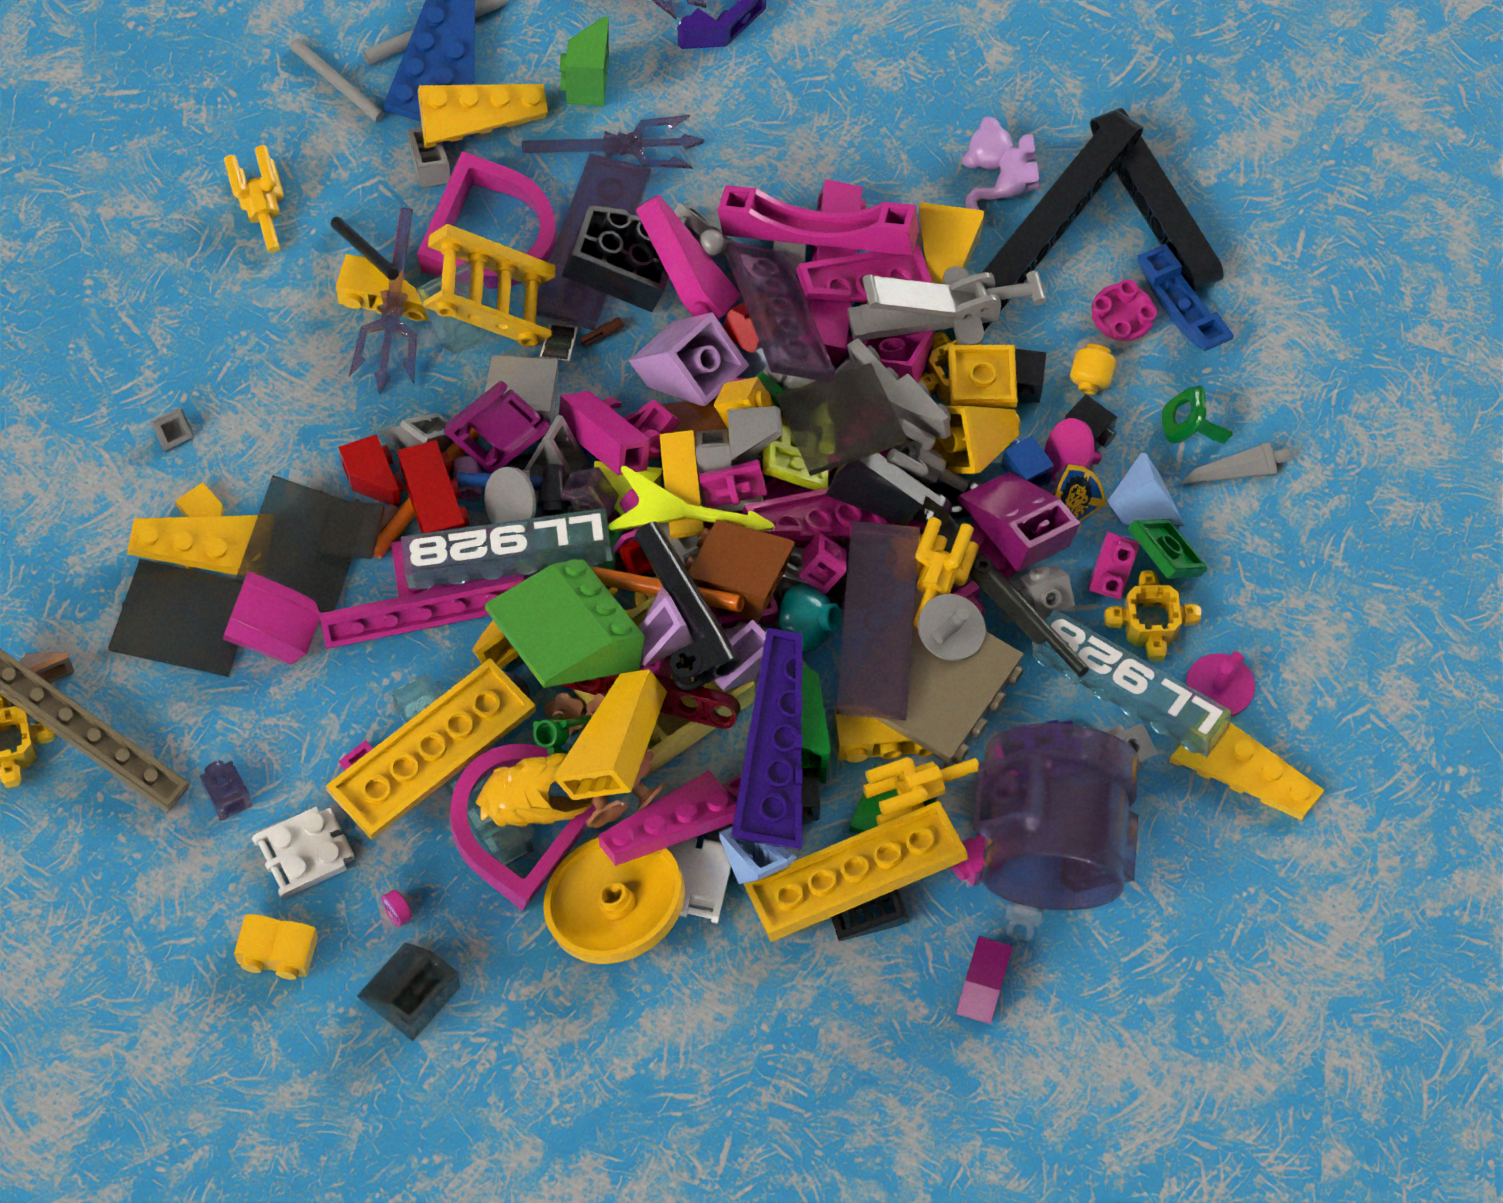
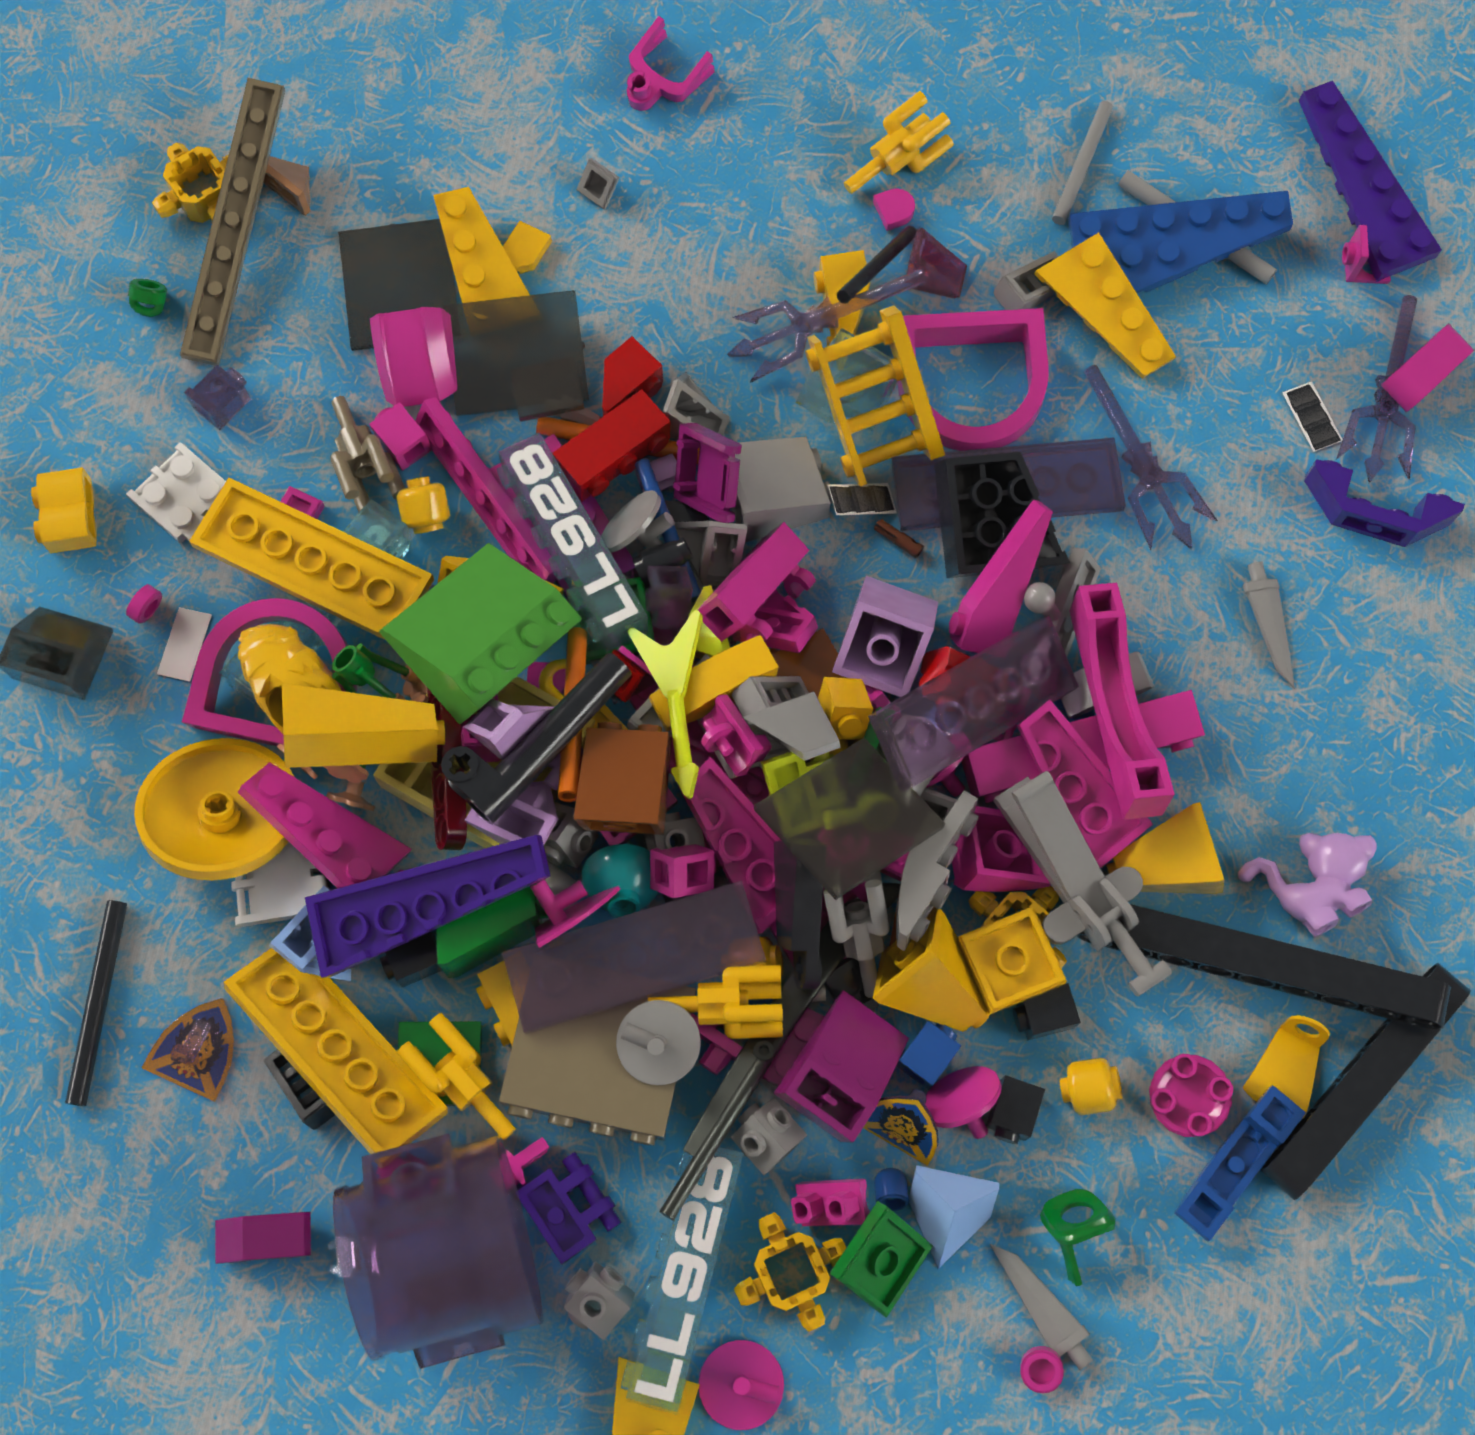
camera: 70 degrees right, 10 degrees up
(92, 355) = (647, 86): none -> dark pink piece
(92, 816) = (147, 292): none -> green tile
(308, 224) = (894, 207): none -> dark pink tile
(335, 657) = (400, 435): none -> dark pink brick
(343, 692) = (360, 457): none -> dark tan plant
(373, 218) = (941, 267): none -> clear pink slope
(412, 656) = (423, 505): none -> yellow head
(443, 894) = (184, 644): none -> white sticker
(586, 65) = (1219, 387): bright green slope -> none
(634, 21) = (1312, 416): none -> sticker
(736, 1053) = (96, 1003): none -> black piece
(775, 113) = (1267, 608): none -> light grey bar
(807, 991) = (196, 1050): none -> shield
(826, 650) = (563, 920): none -> dark pink shield
(1116, 526) = (891, 1184): none -> blue piece
(1122, 240) = (1289, 1062): none -> yellow piece
(1281, 482) = (1041, 1369): none -> dark pink tile

